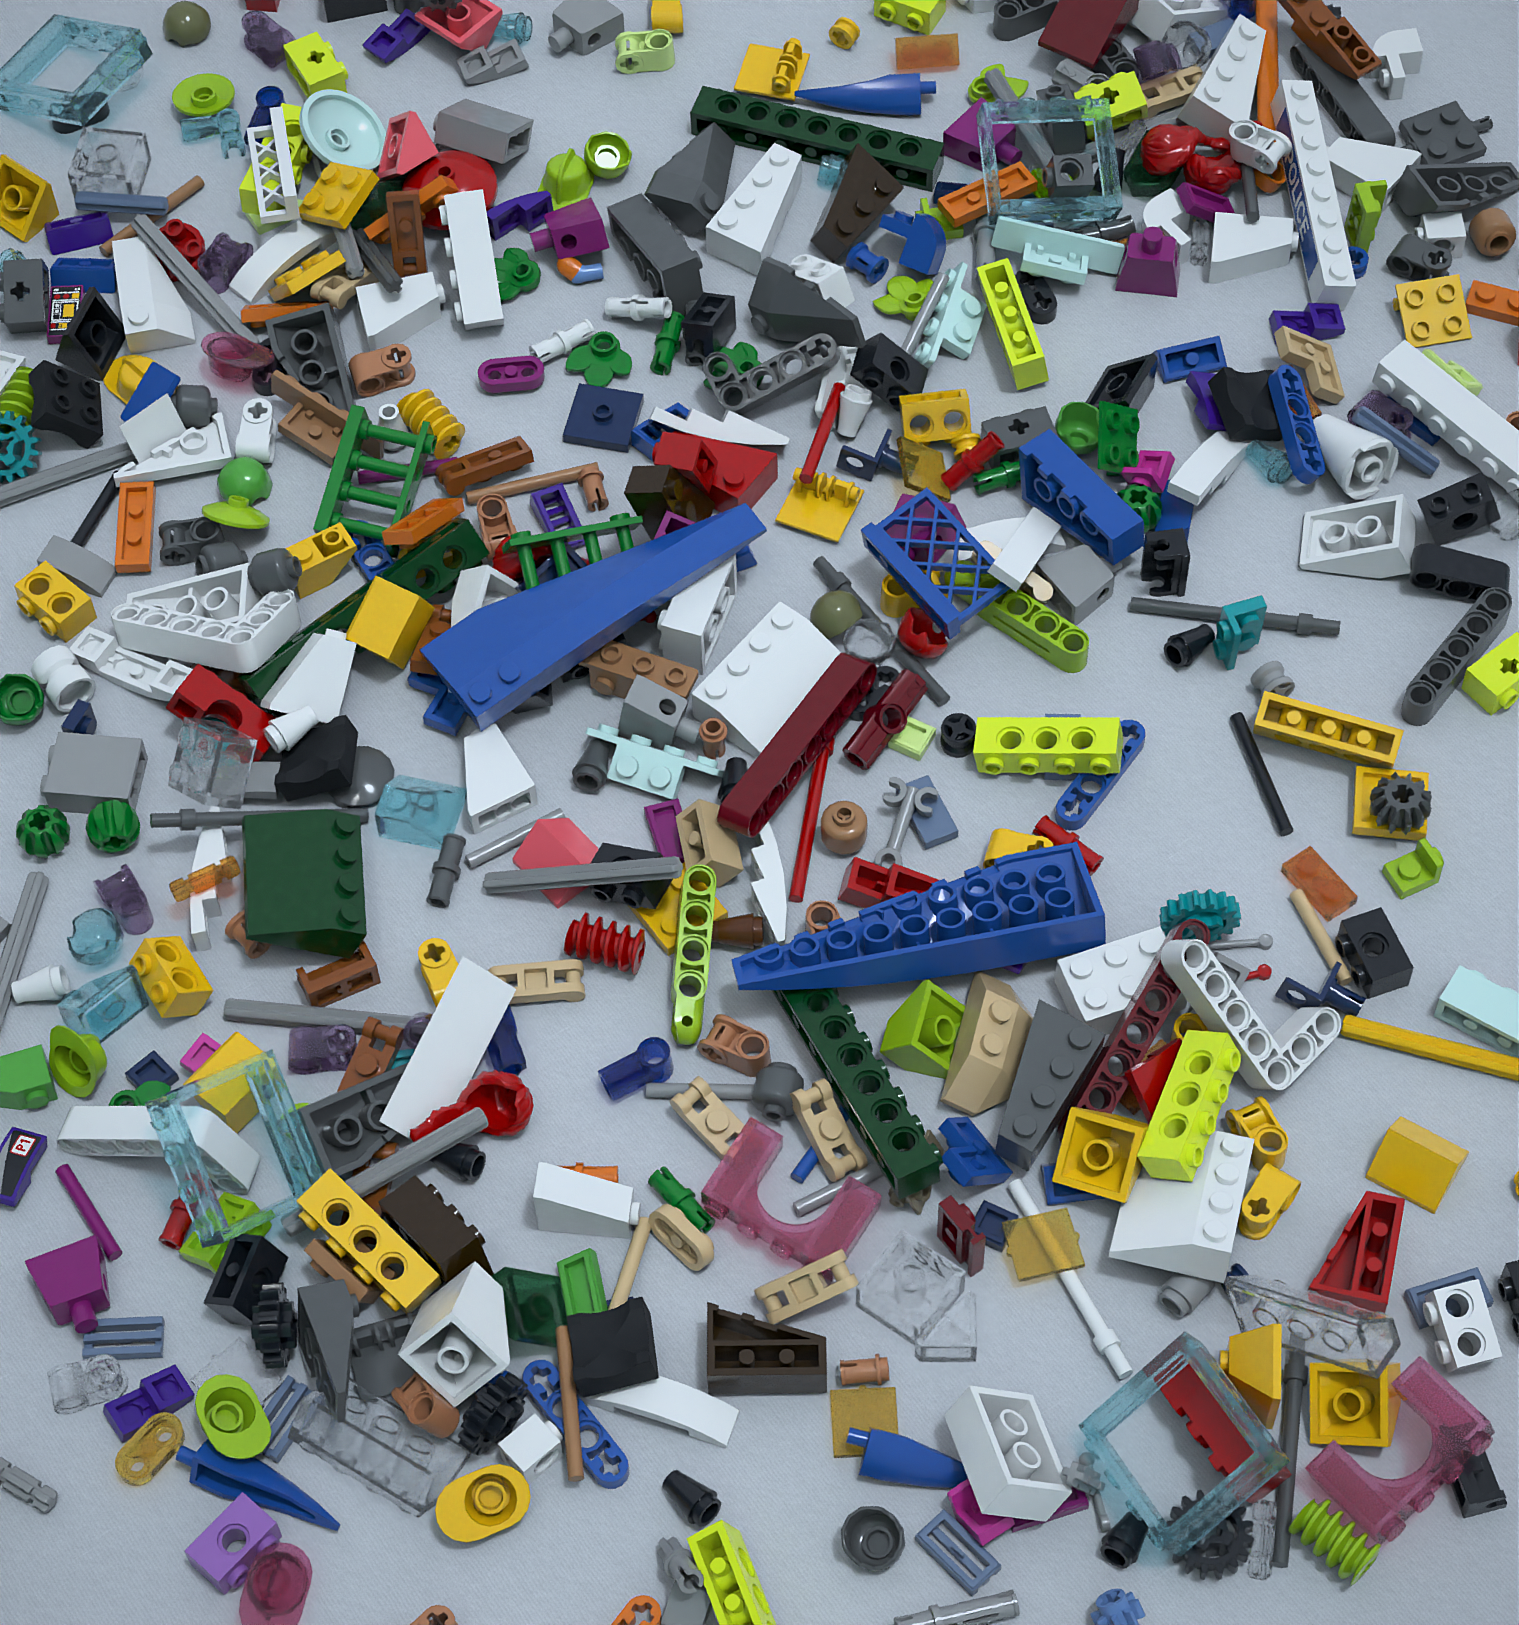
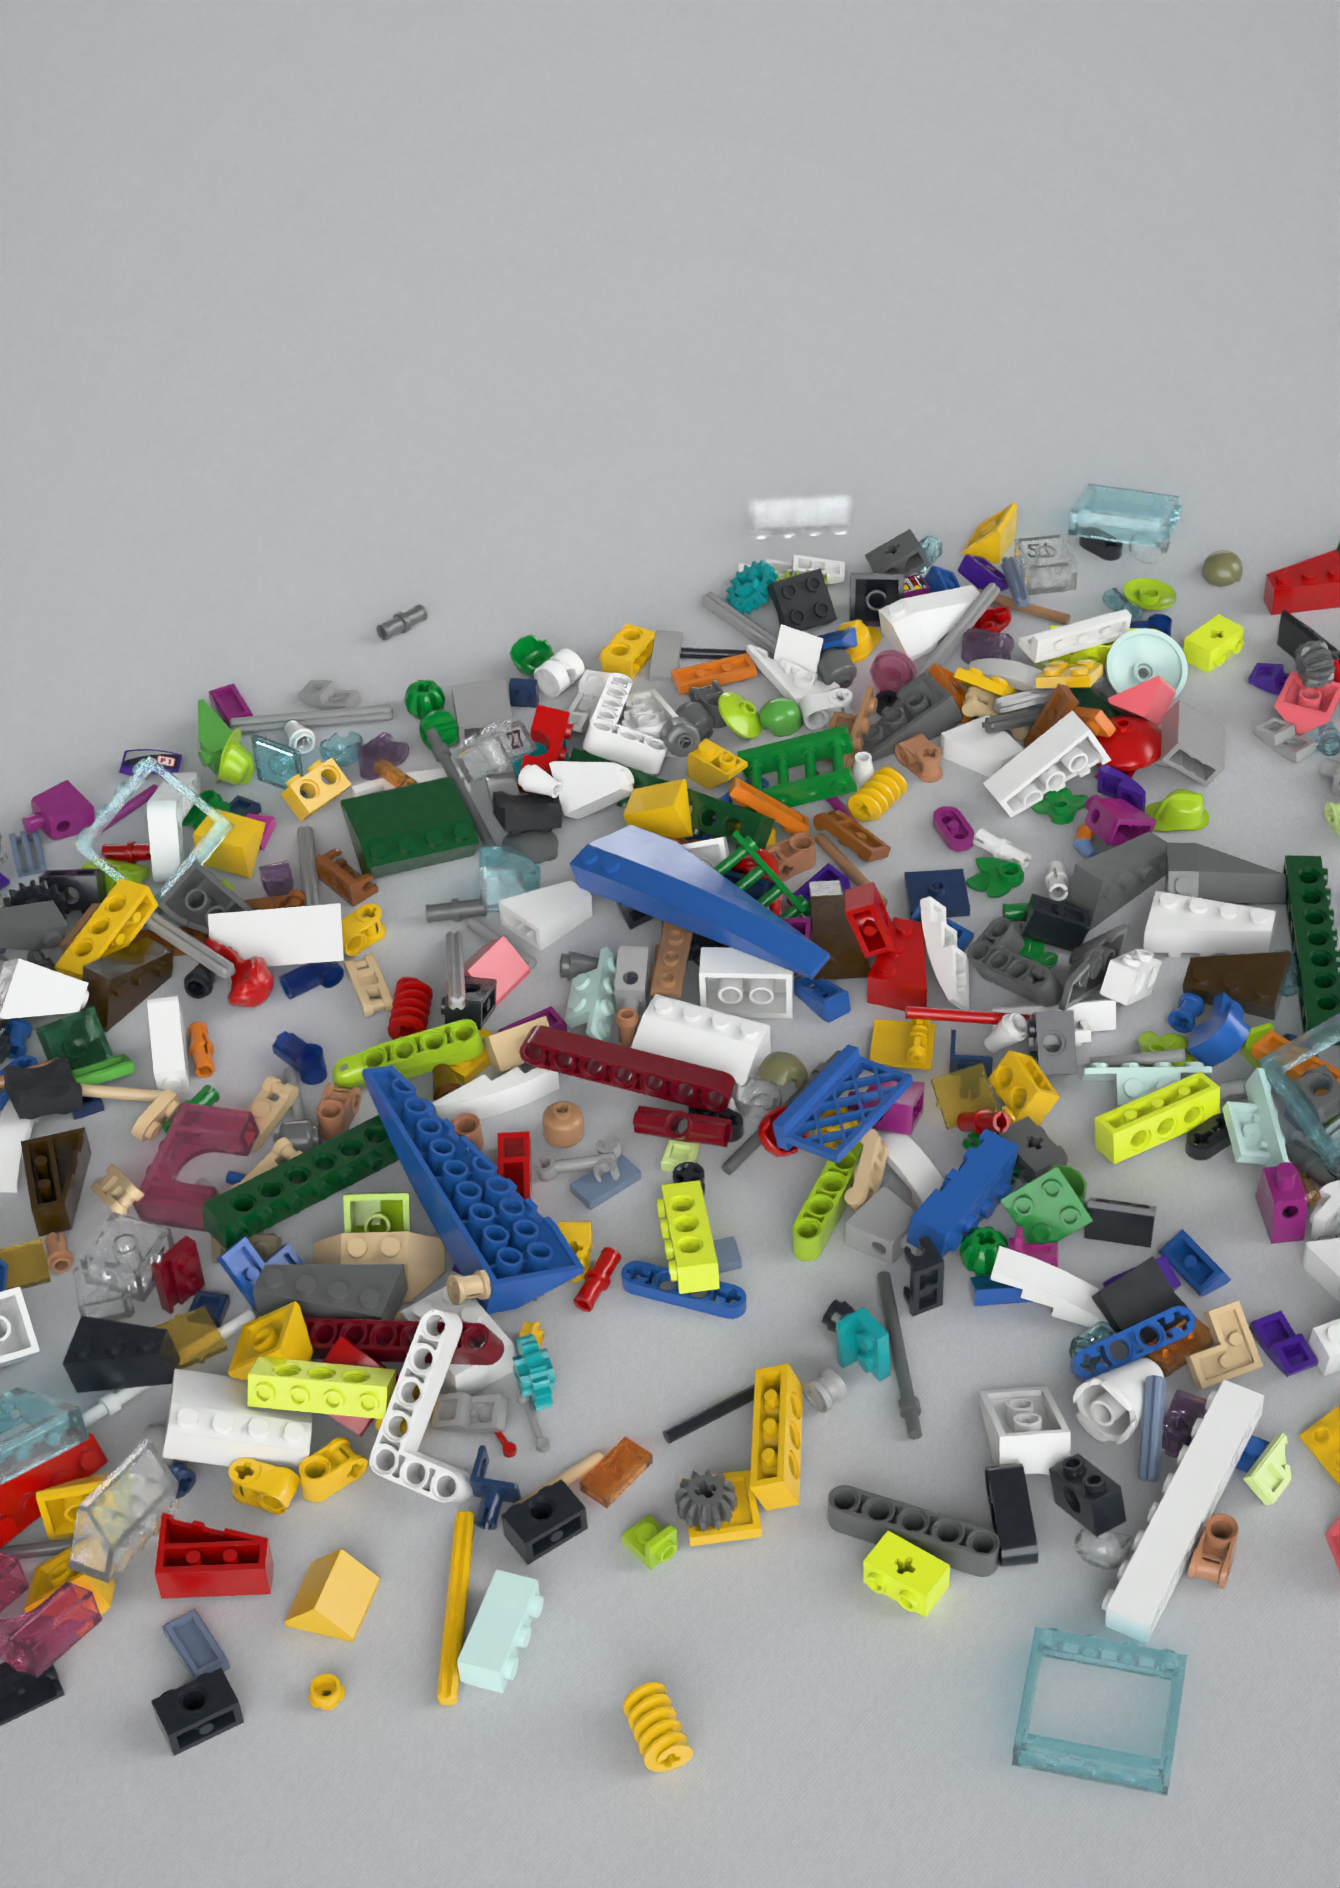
camera: 75 degrees right, 15 degrees down
(265, 37) = (1230, 604): clear purple piece -> none
(607, 155) = (1214, 823): lime hair -> none
(809, 824) = (588, 1107): red bar -> none
(1024, 549) = (883, 1163): white slope -> none
(1063, 1311) = (119, 1356): none -> black wedge
(1095, 947) = (468, 1287): none -> tan bush
(1127, 920) = (534, 1329): none -> yellow plate
(1473, 1324) = (157, 1652): white brick -> none

